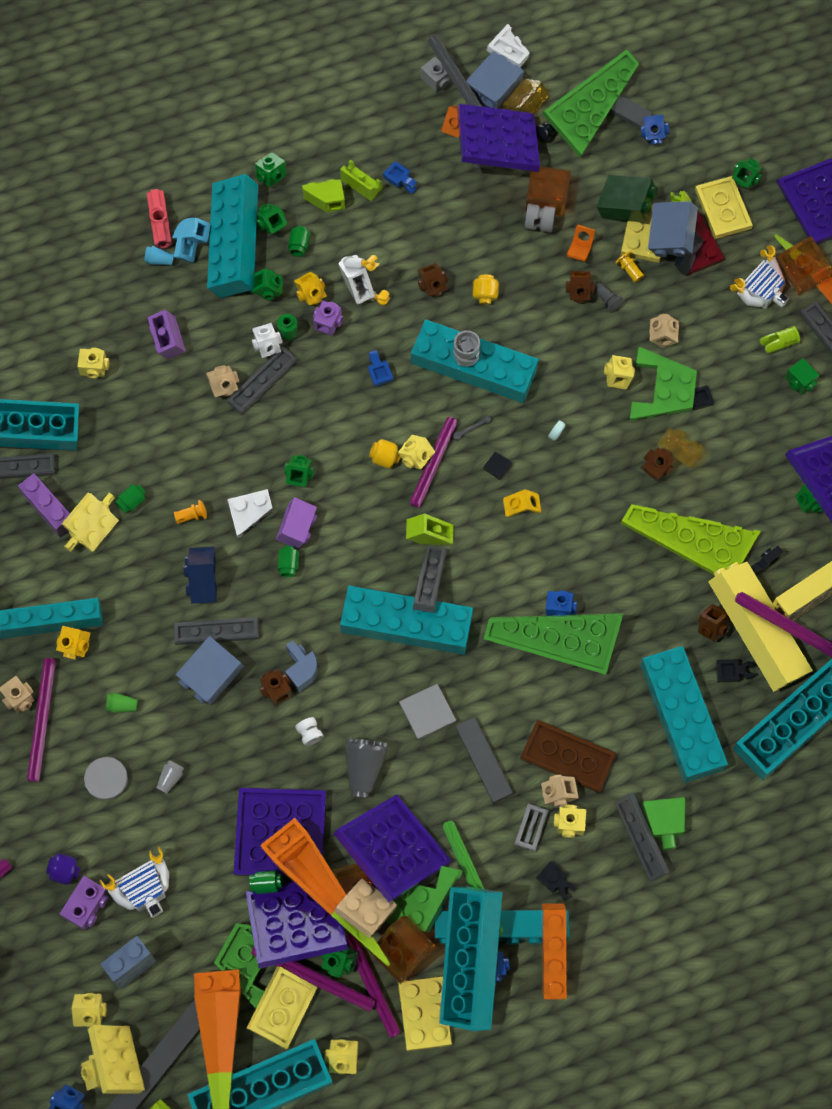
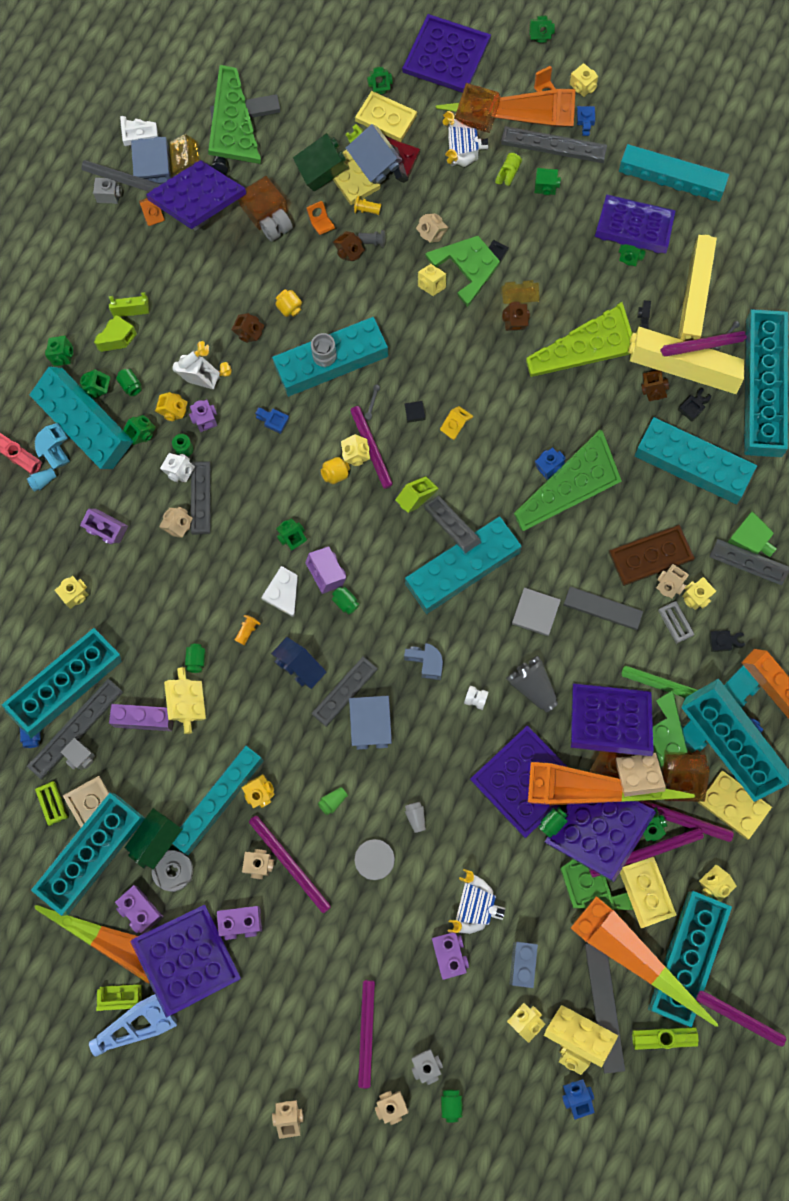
camera: 40 degrees left, 5 degrees up
(62, 869) = (410, 948): dark purple head -> none
(275, 687) = (424, 682): reddish brown brick -> none
(398, 176) = (151, 279): blue plate -> none
(557, 430) = (430, 353): light aqua tile -> none
(651, 123) = (291, 96): blue brick -> none

